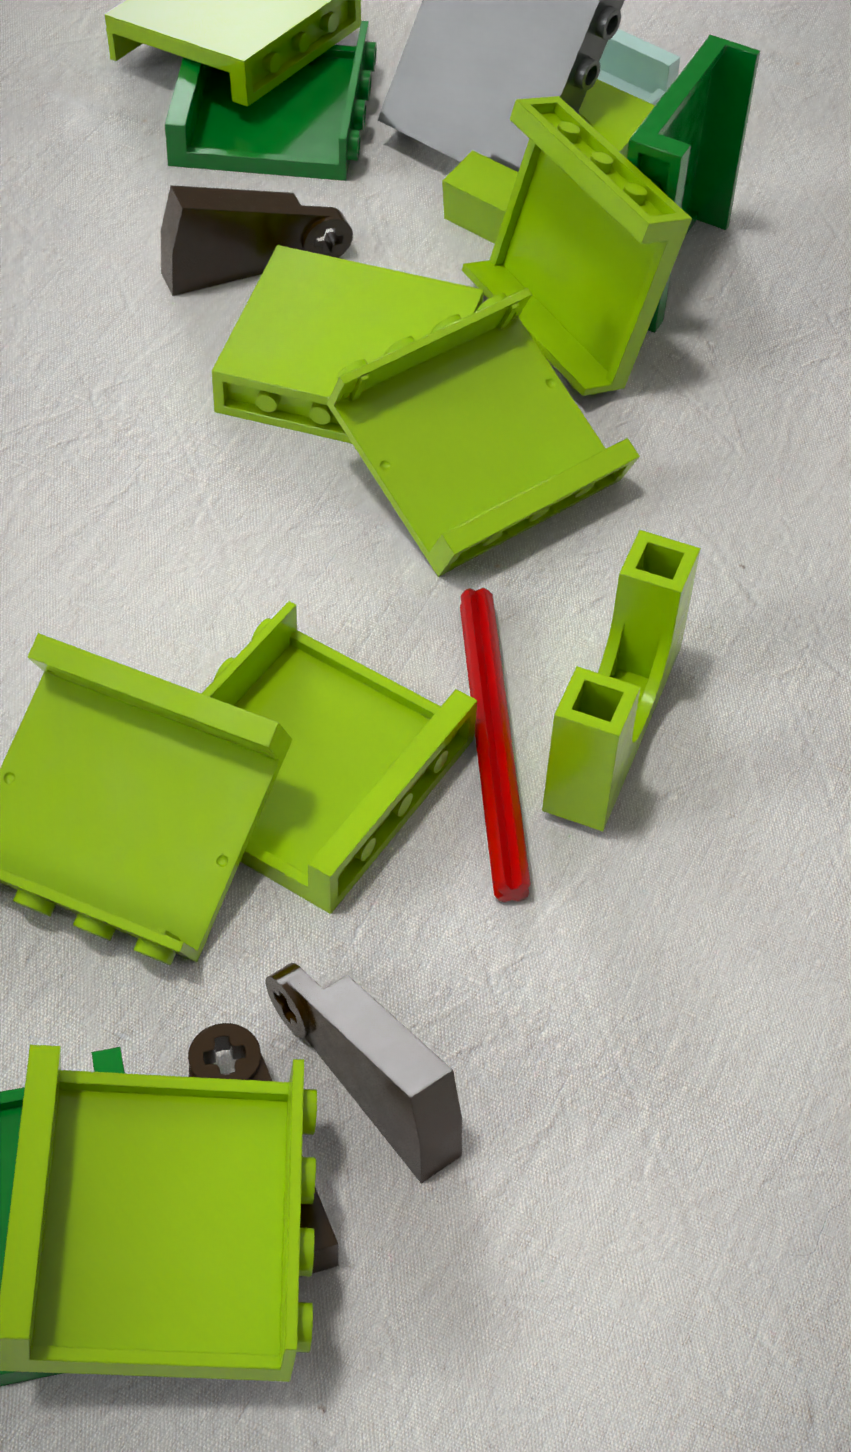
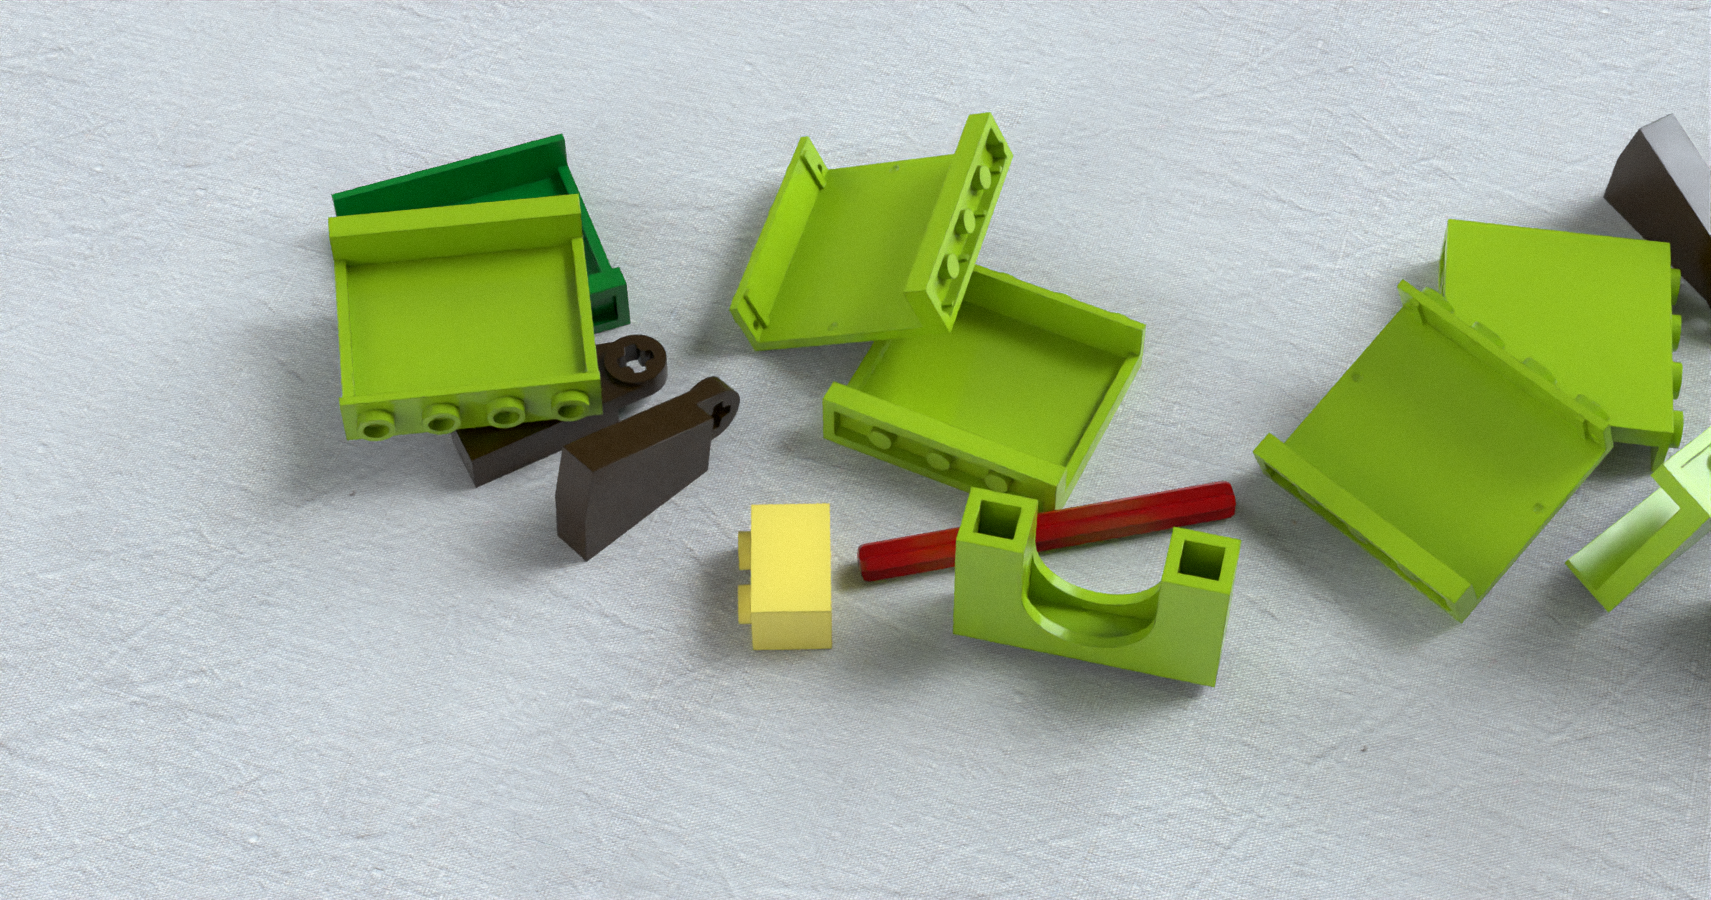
camera: 85 degrees right, 0 degrees up
(533, 949) = (789, 577): none -> light yellow brick

